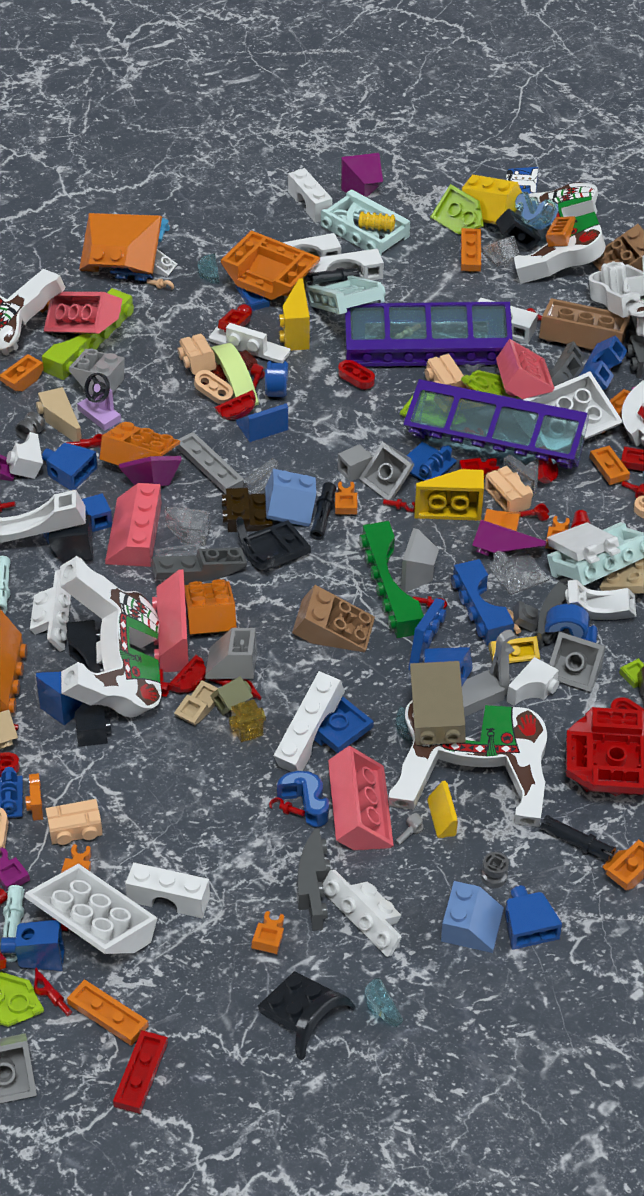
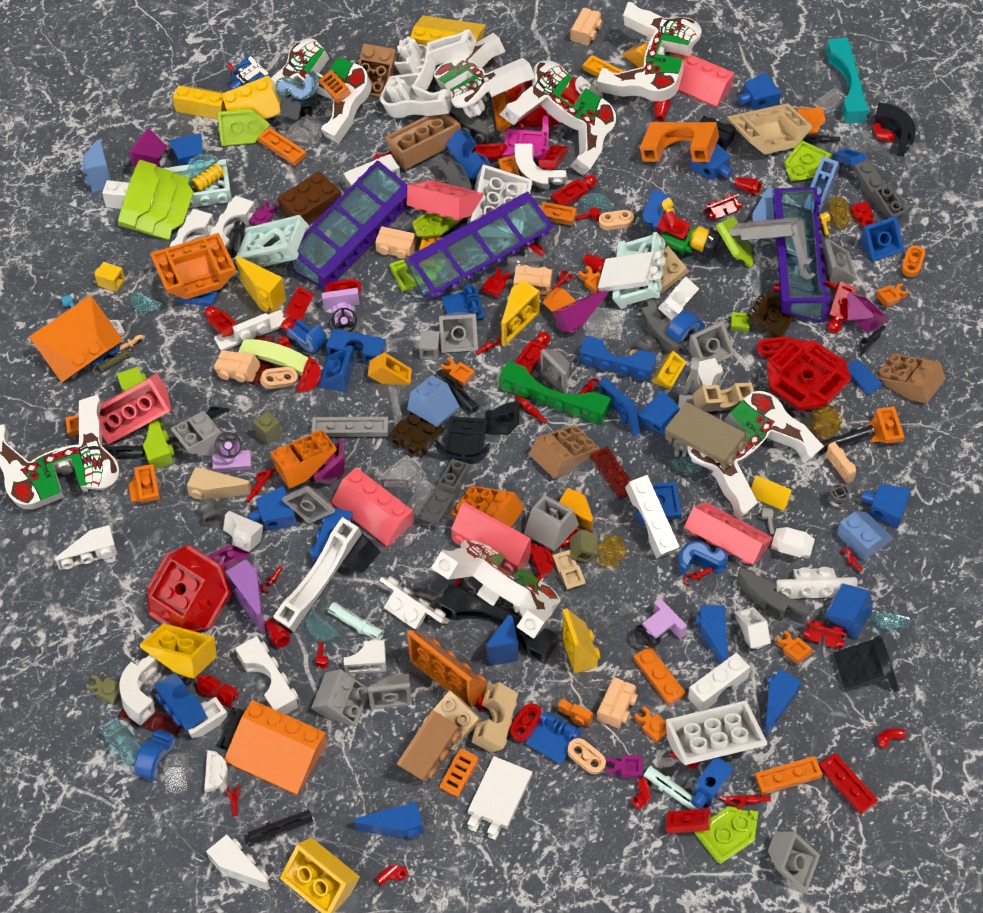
camera: 50 degrees left, 10 degrees up
(36, 330) = (115, 451): none -> black pin
(91, 474) = (309, 504): none -> light grey slope
(109, 745) = (579, 643): none -> yellow slope
(133, 285) = (114, 360): none -> olive piece
(138, 372) = (218, 411): none -> black hand
(139, 840) = (659, 676): none -> orange plate
(151, 410) = (267, 428): none -> olive brick
(193, 952) = (780, 694): none -> blue slope
(196, 802) = (658, 624): none -> lavender piece
(212, 231) = (109, 276): none -> yellow brick
(231, 851) = (713, 629): none -> blue slope
(235, 1077) = (888, 734): none -> red arm
(258, 883) = (753, 627): none -> white arch
(272, 667) = (577, 502): none -> light orange slope
(297, 452) = (389, 370): none -> light orange slope
(303, 356) = (296, 308): none -> red plate
(306, 425) = (368, 345): none -> blue arch
(315, 154) = (95, 167): none -> medium blue slope
(315, 203) = (155, 201): none -> lime slope
(316, 959) = (832, 635): none -> red hinge
(323, 559) = (503, 419): none -> black slope
(339, 382) = (341, 304): none -> lavender piece
(351, 668) = (611, 471): none -> clear red tile
(356, 955) = (850, 609): none -> blue slope
(359, 570) = (529, 408): none -> red hand
(383, 205) = (200, 163): none -> clear light blue plate
(388, 282) = (263, 215): none -> magenta plate
(399, 198) = (186, 148): none -> blue torso
(399, 865) = (793, 542): none -> white slope
(428, 289) = (309, 198): none -> reddish brown brick
(428, 927) = (852, 560): none -> red hand
(448, 537) = (532, 353): none -> red plate
(454, 168) = (198, 101): none -> yellow slope
(500, 691) = (713, 399): none -> tan arch
(538, 855) = (841, 463): none -> light nougat plate
(578, 798) = (826, 421): none -> clear yellow brick
(626, 378) = (491, 151): none -> red plate

